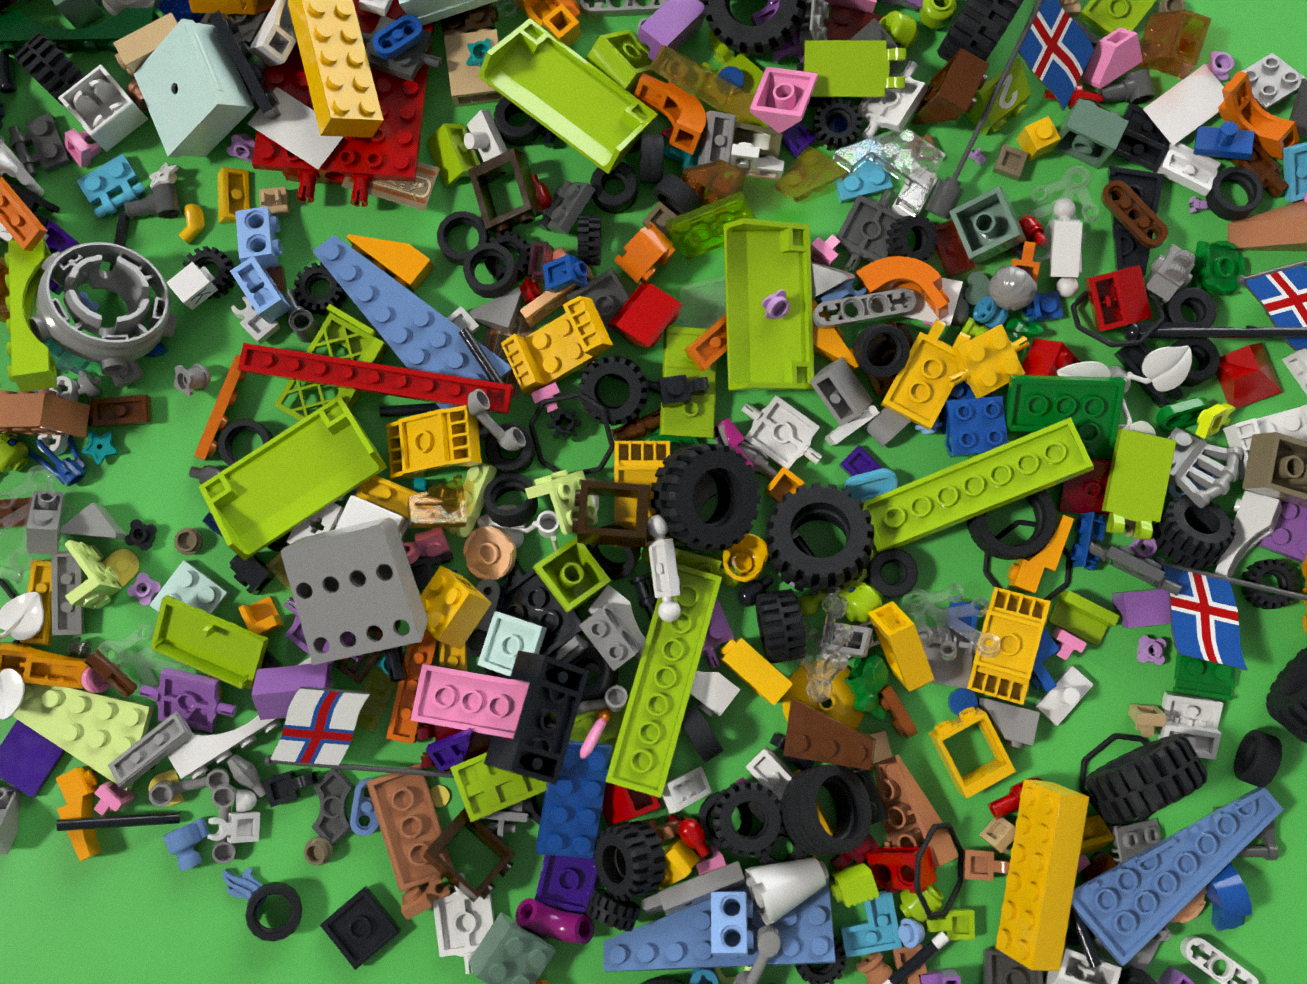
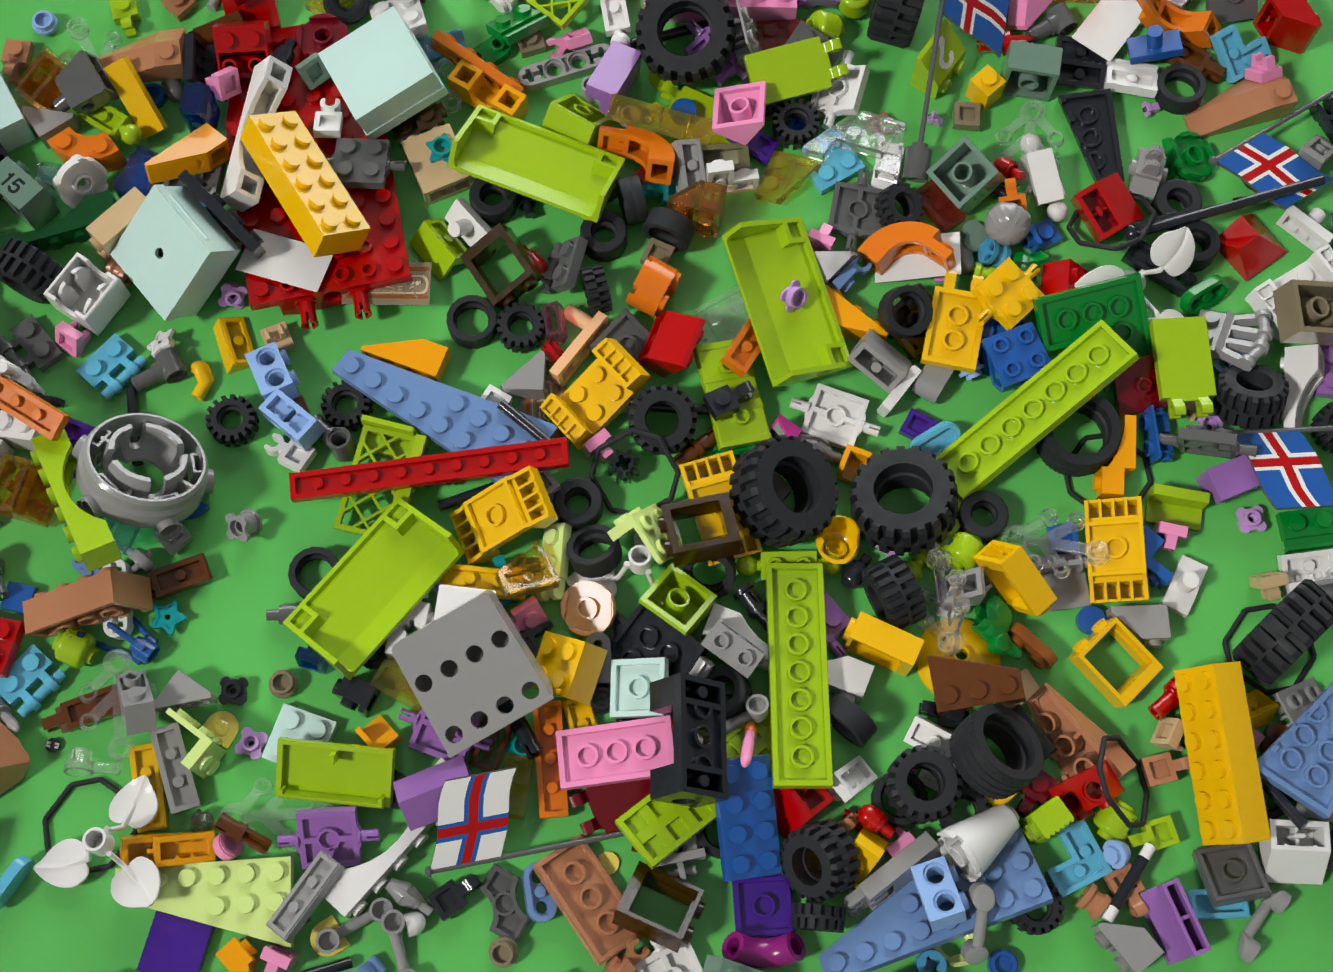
camera: 15 degrees left, 10 degrees down
(193, 285) = (223, 433): white brick -> none
(217, 418) = (279, 556): orange plate -> none
(239, 827) = (416, 951): white plate -> none
(396, 37) = (360, 152): blue plate -> none
(450, 750) = (608, 806): dark purple tile -> none
(486, 251) = (507, 322): black tyre -> none
(511, 439) = (577, 491): light grey bar -> none
(564, 273) = (582, 323): blue bracket -> none
(664, 569) = (765, 568): white plate -> none
(704, 227) = (703, 245): clear neon green plate -> none
(865, 312) = (877, 282): light grey beam -> none
(952, 89) = (892, 63): reddish brown slope -> none
(1129, 203) = (1089, 121): reddish brown plate -> none
(1212, 419) = (1231, 291): neon yellow plate -> none

